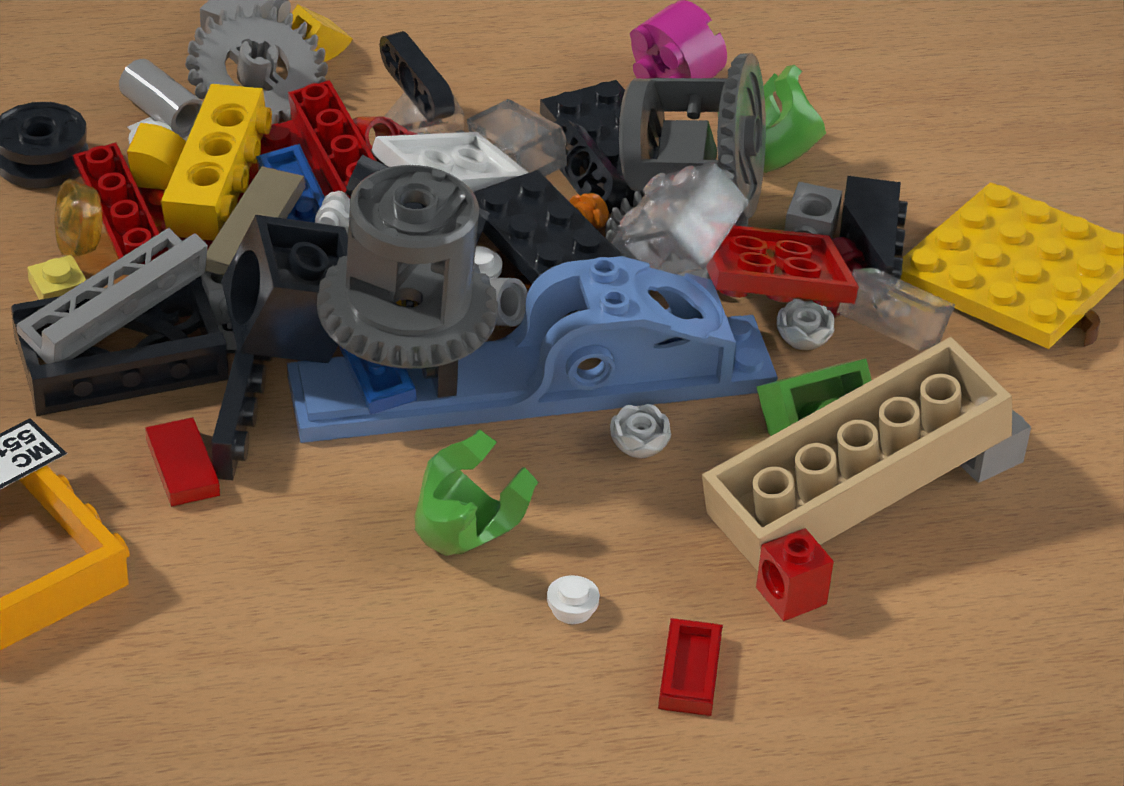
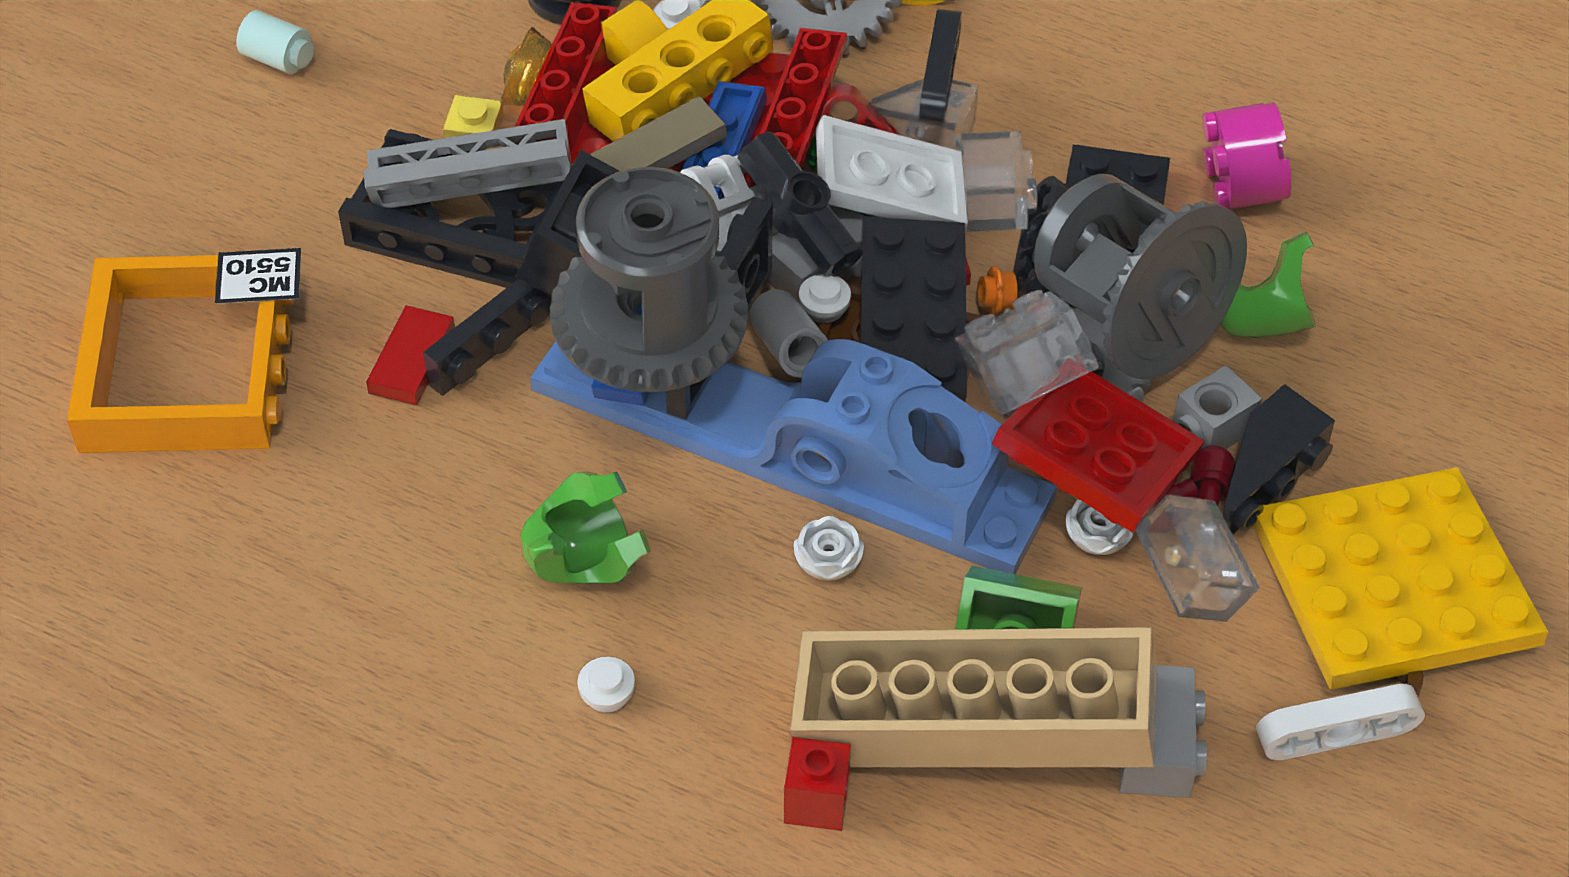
camera: 40 degrees right, 10 degrees up
(690, 667) = (648, 816): red tile -> none
(1074, 363) = (1340, 722): none -> white beam

